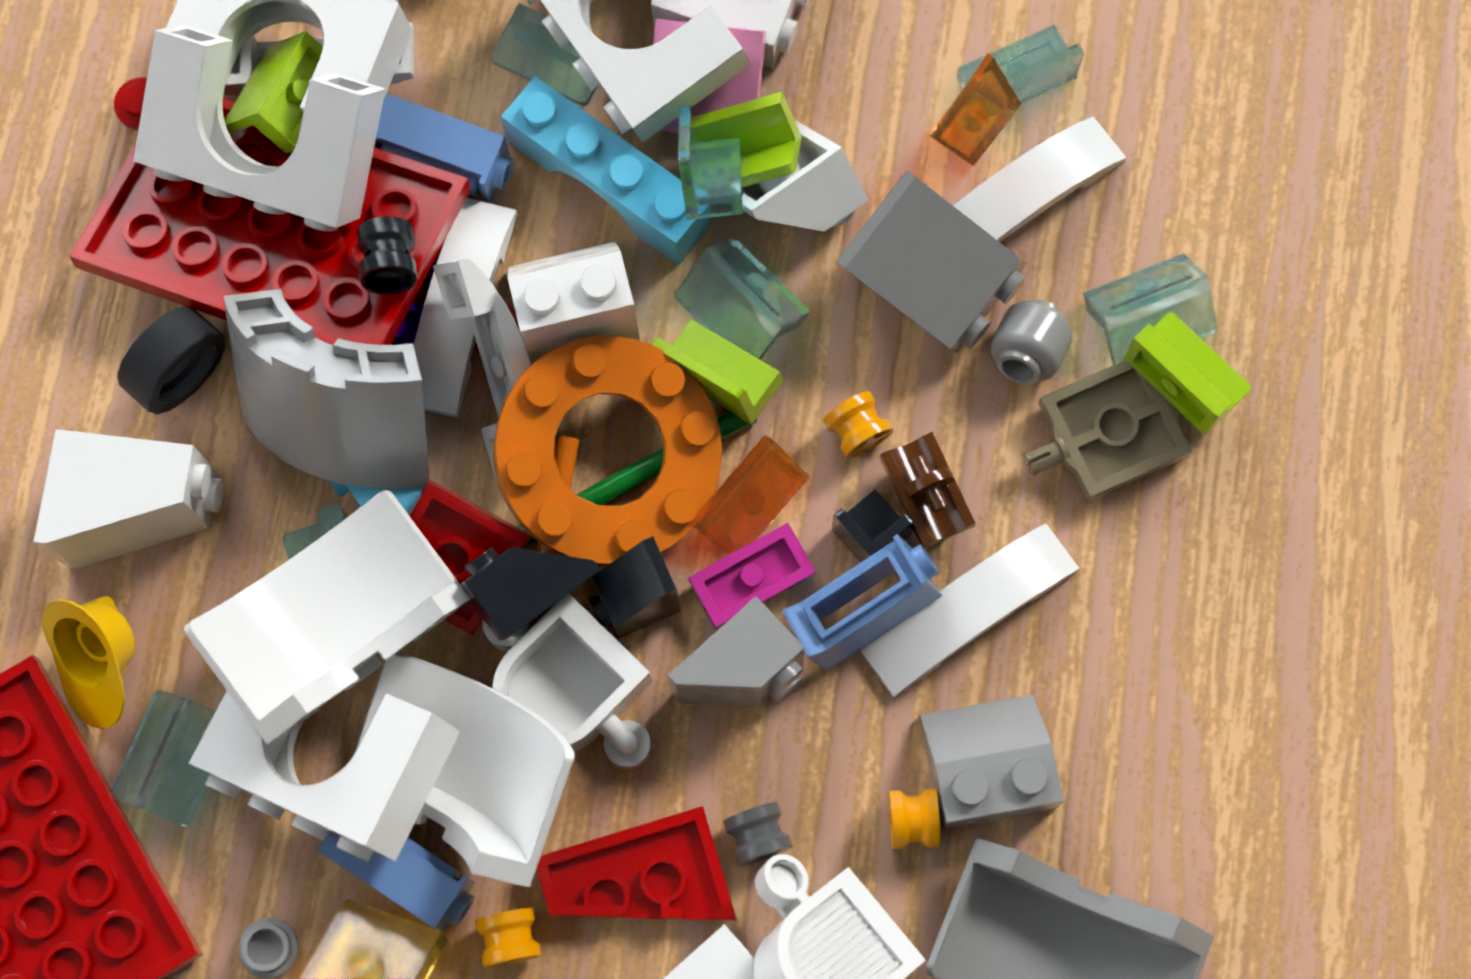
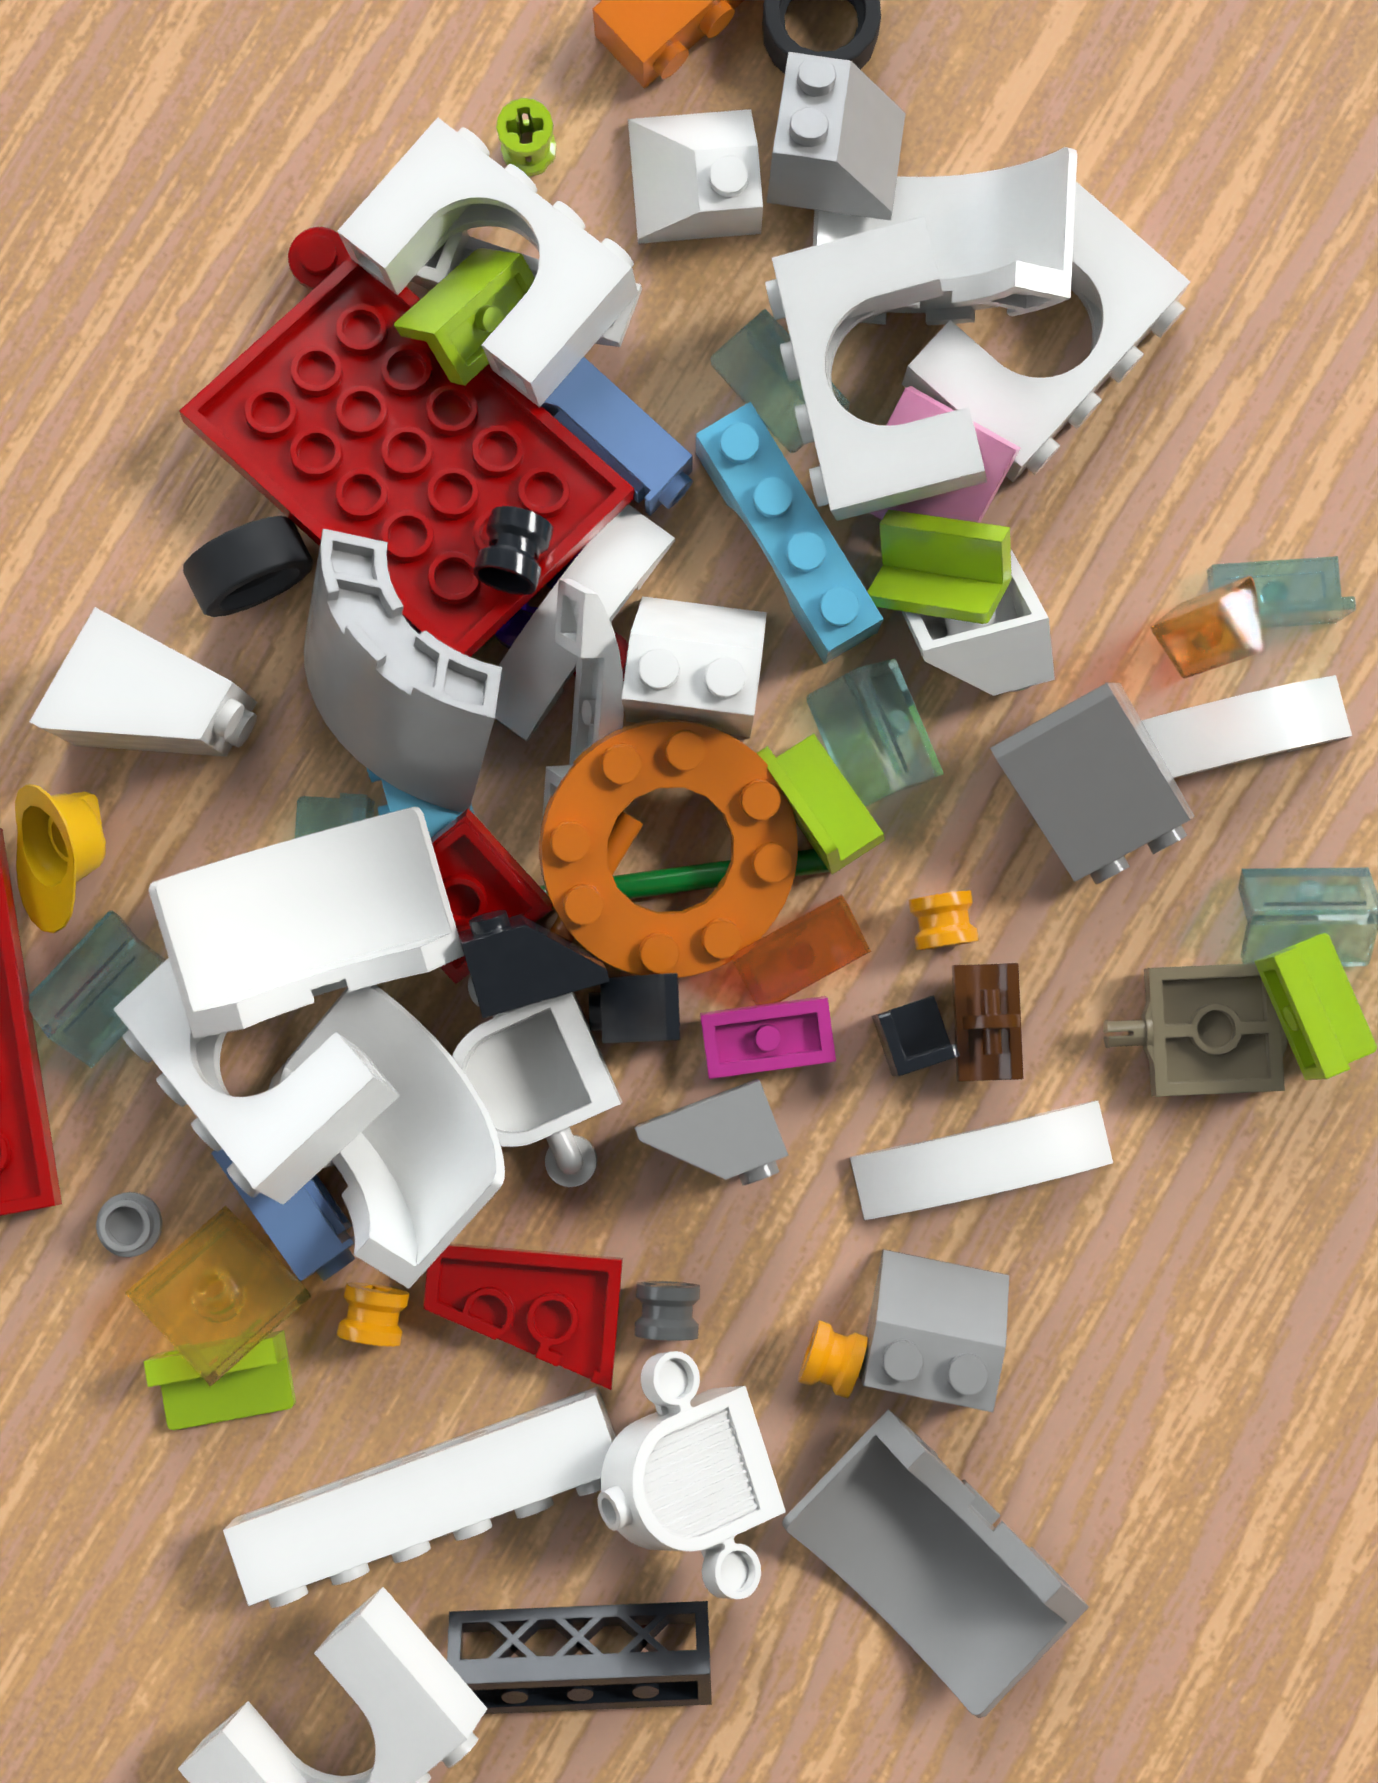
camera: 20 degrees right, 10 degrees up
(187, 136) = (351, 334): white arch -> none
(709, 172) = (894, 591): clear light blue panel -> none
(874, 618) = (937, 1108): medium blue window -> none
(1031, 342) = (1164, 903): light grey head -> none

